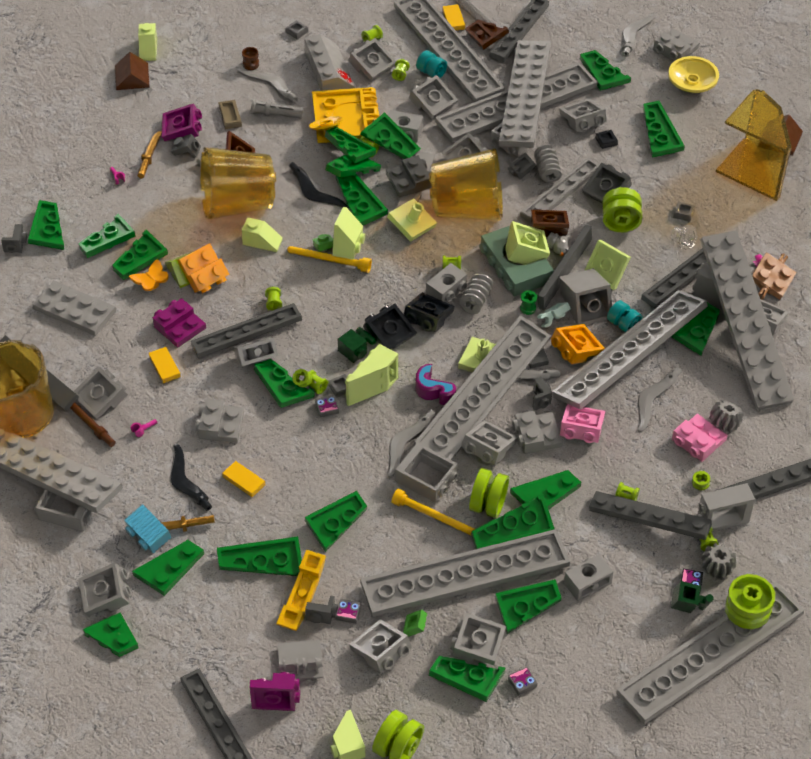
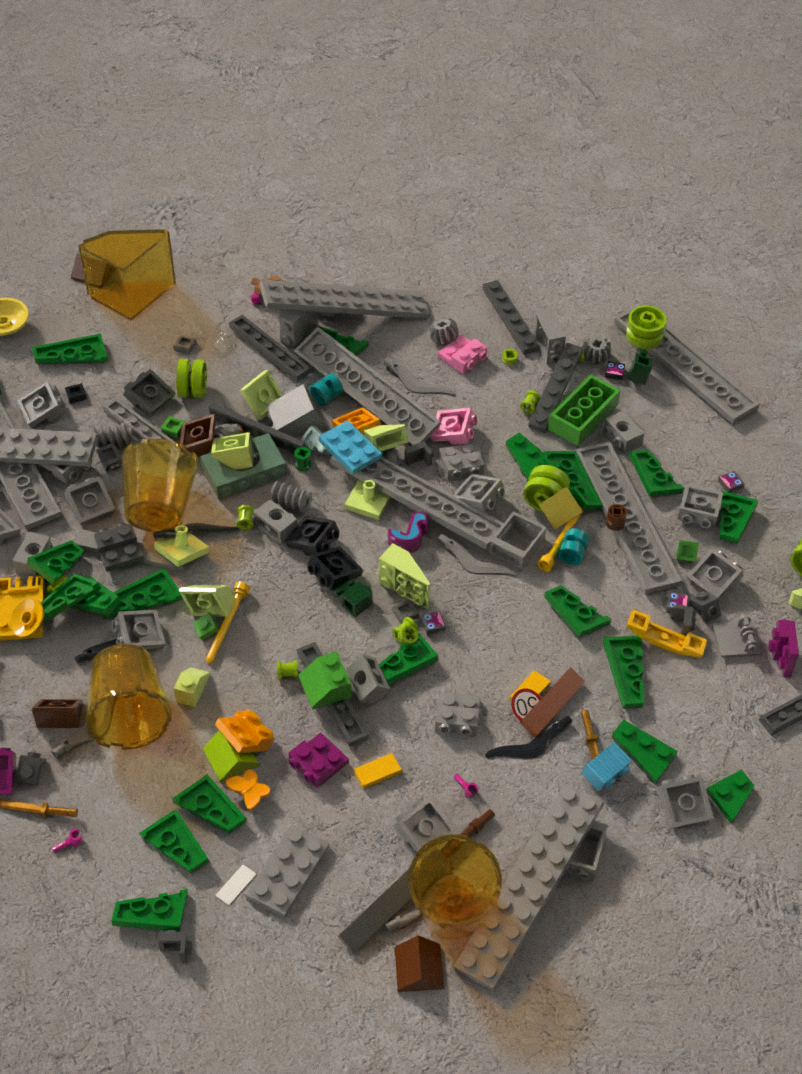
camera: 90 degrees left, 0 degrees up
(67, 277) = (235, 884): none -> white sticker
(223, 473) = (523, 702): none -> sticker
(228, 494) = (552, 702): none -> dark orange tile
(252, 321) = (325, 681): none -> bright green slope
(316, 197) = (139, 628): none -> light grey plate
(340, 633) = (707, 604): none -> dark grey bracket
(416, 518) = (574, 546): none -> teal wheel
(439, 226) = (167, 533): none -> black piece
(450, 552) = (616, 517): none -> reddish brown wheel
(462, 504) = (560, 508): none -> light yellow sticker
(532, 327) = (350, 447): none -> medium azure plate
(550, 356) = (387, 436): none -> yellowish green slope
(566, 205) = (172, 427): none -> bright green plate
(614, 538) = (584, 410): none -> bright green brick

